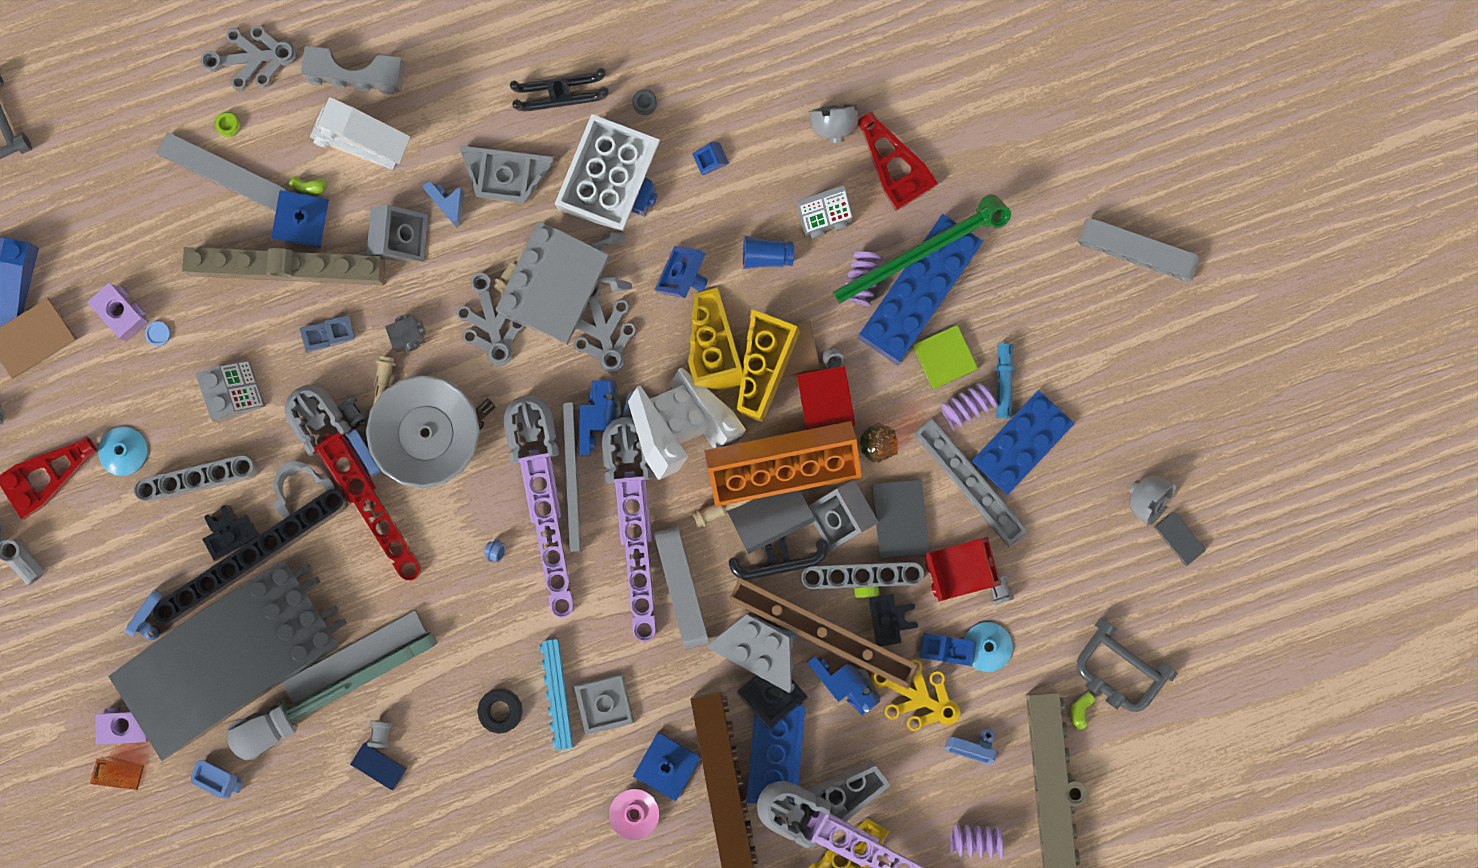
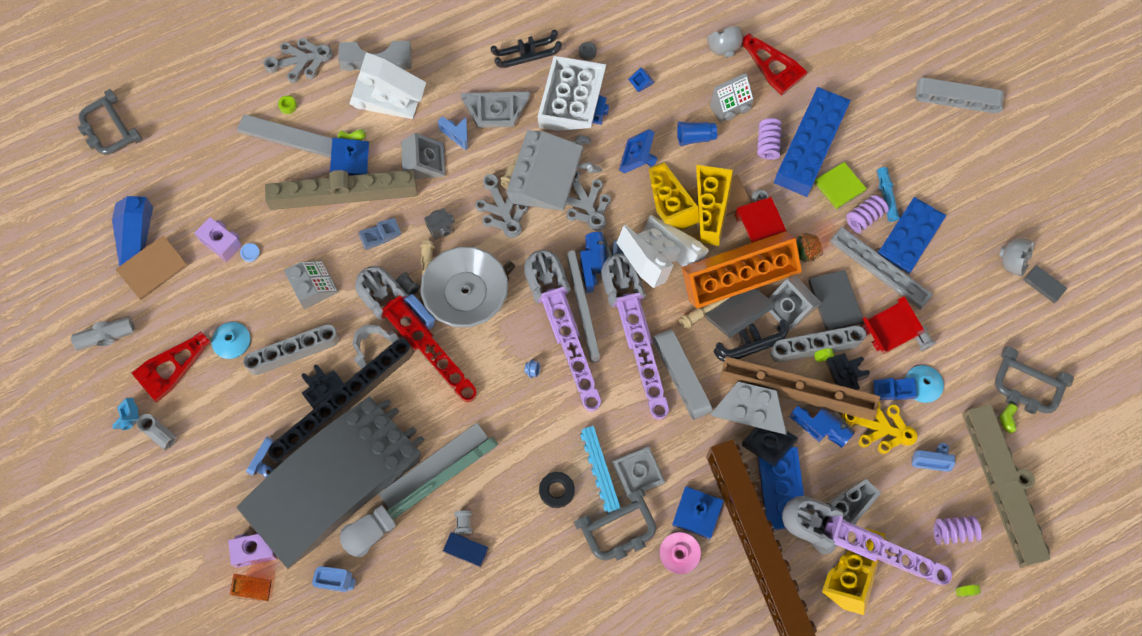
camera: 15 degrees left, 15 degrees down
(563, 799) = (637, 543): none -> dark grey bar
(989, 213) = (850, 79): green piece -> none

